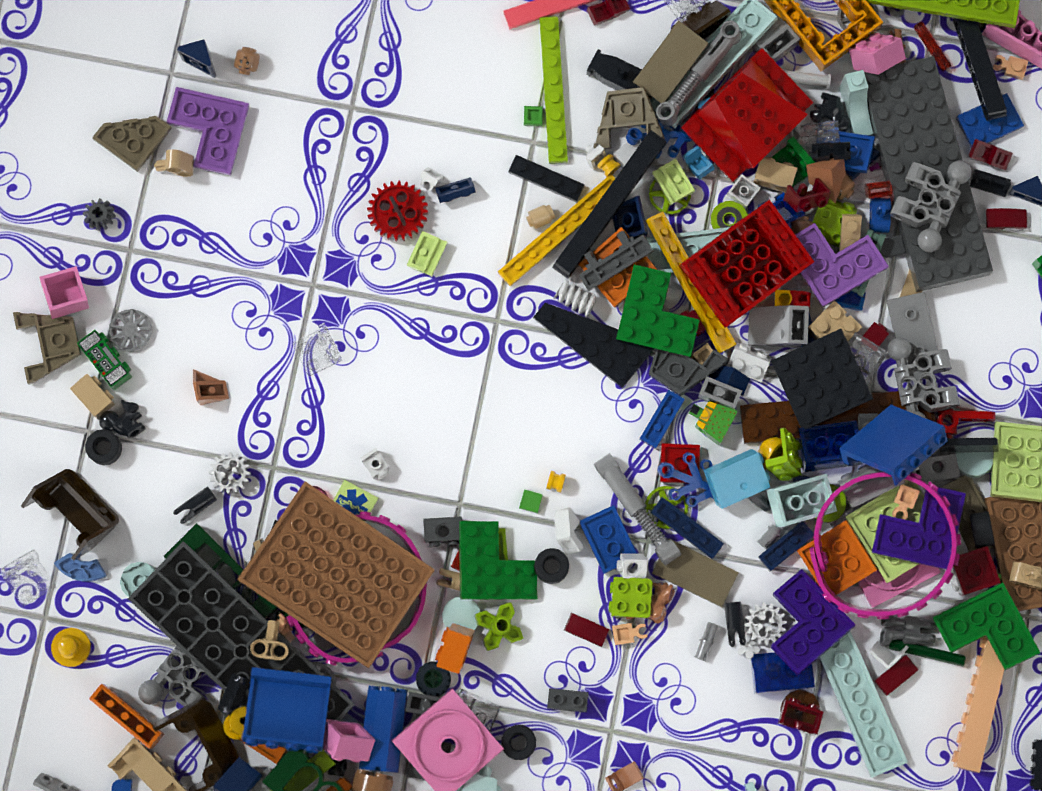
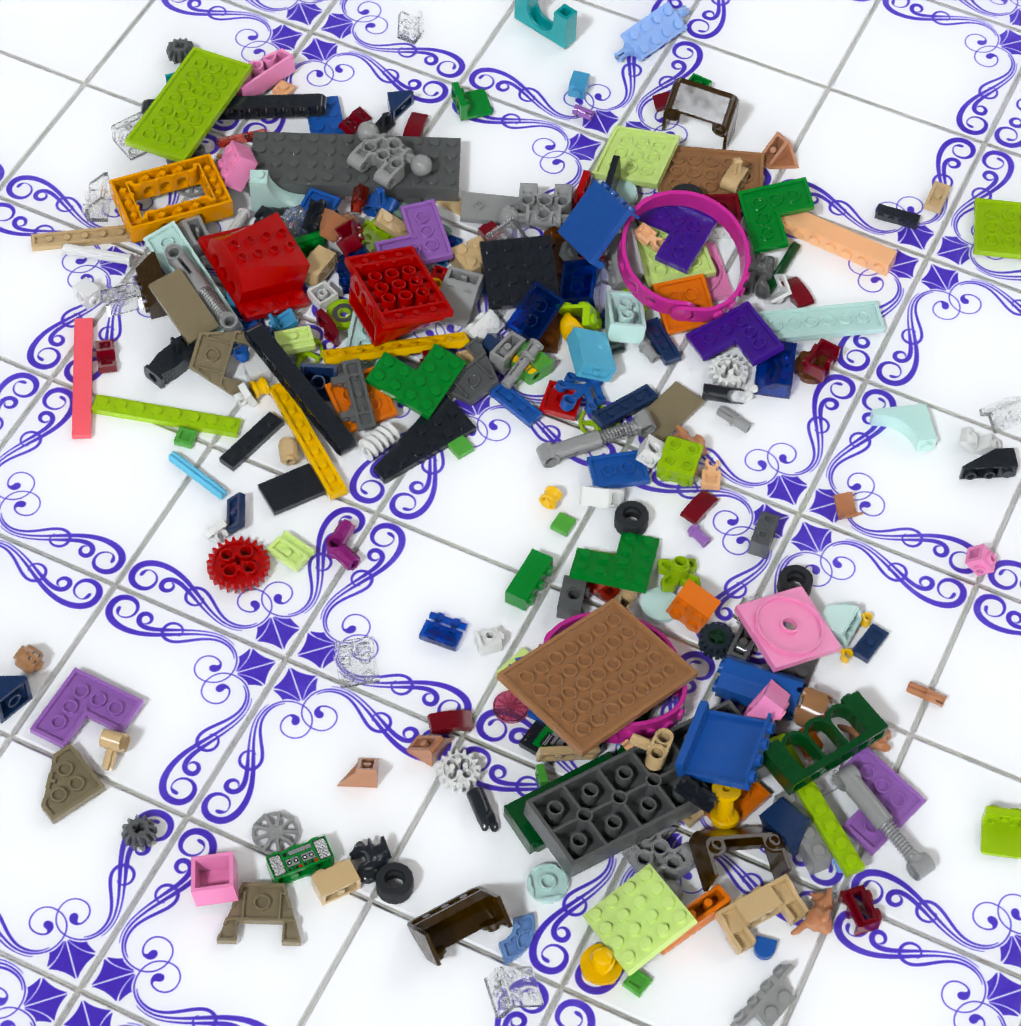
camera: 80 degrees left, 25 degrees down
(62, 682) = (637, 983): none -> bright green tile
(109, 670) = (639, 919): none -> yellowish green plate
(241, 549) = (541, 775): none -> bright green tile
(250, 440) = (428, 748): none -> nougat slope
(280, 452) = (448, 721): none -> dark red slope
(370, 419) = (442, 635): none -> clear blue plate
(435, 303) = (342, 552): none -> magenta piece
(453, 485) = (529, 580): none -> green brick
(491, 141) = (197, 475): none -> medium azure axle
(499, 232) = (291, 489): none -> black tile
(552, 636) = (695, 532): none -> medium lavender pin
(595, 379) = (460, 447): none -> bright green tile
(700, 211) = (330, 330): none -> dark red slope
(711, 414) = (526, 356): none -> light grey pin
(768, 408) = (534, 312): none -> clear blue slope

